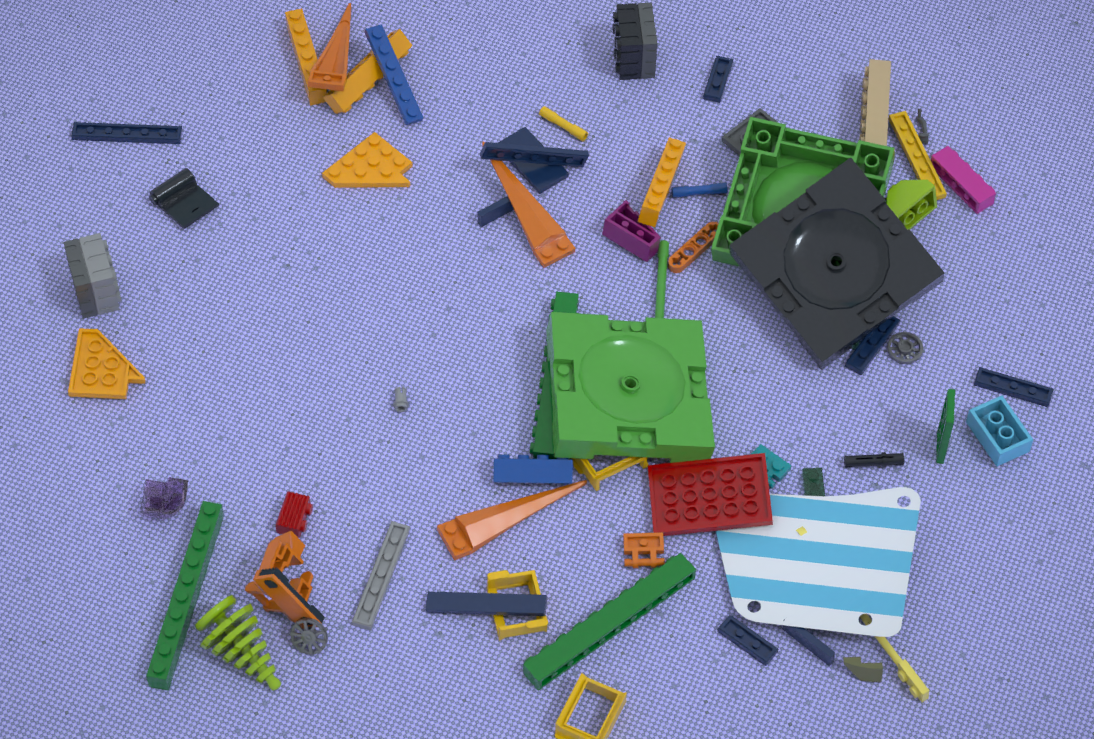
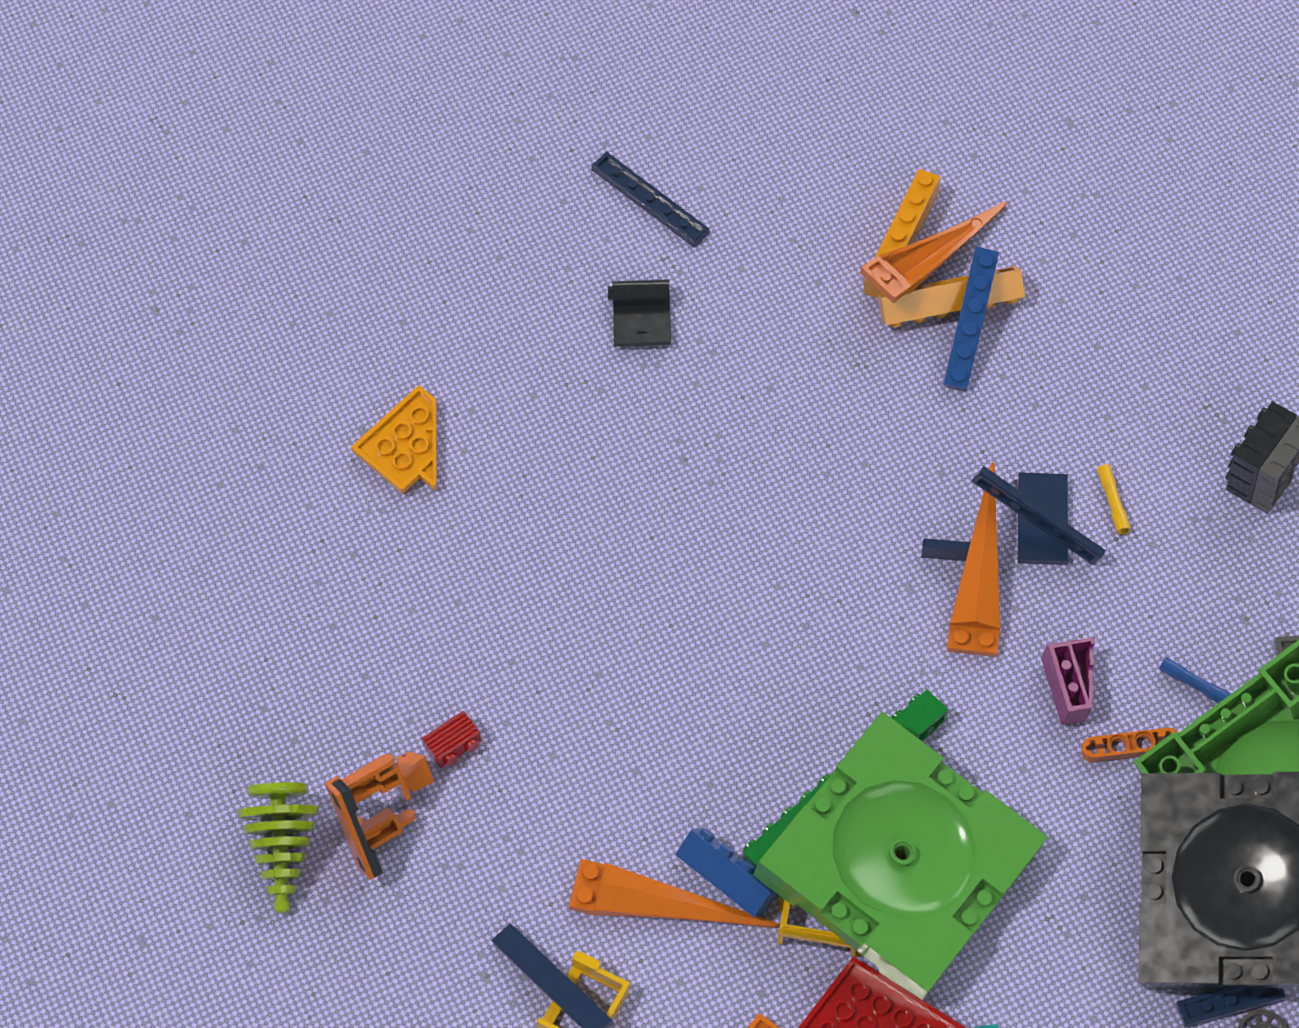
camera: 45 degrees right, 5 degrees up
(93, 275) = (469, 337): light grey piece -> none
(163, 499) = (340, 628): clear purple brick -> none
(185, 596) = (277, 747): green brick -> none
(309, 636) = (352, 881): flat silver wheel -> none
(370, 166) = (863, 405): light orange wing -> none
(381, 575) = (482, 869): light grey tile -> none
(400, 400) = (665, 693): light grey pin -> none
(661, 182) = (1151, 644): light orange brick -> none
(663, 254) = (1084, 731): bright green piece -> none

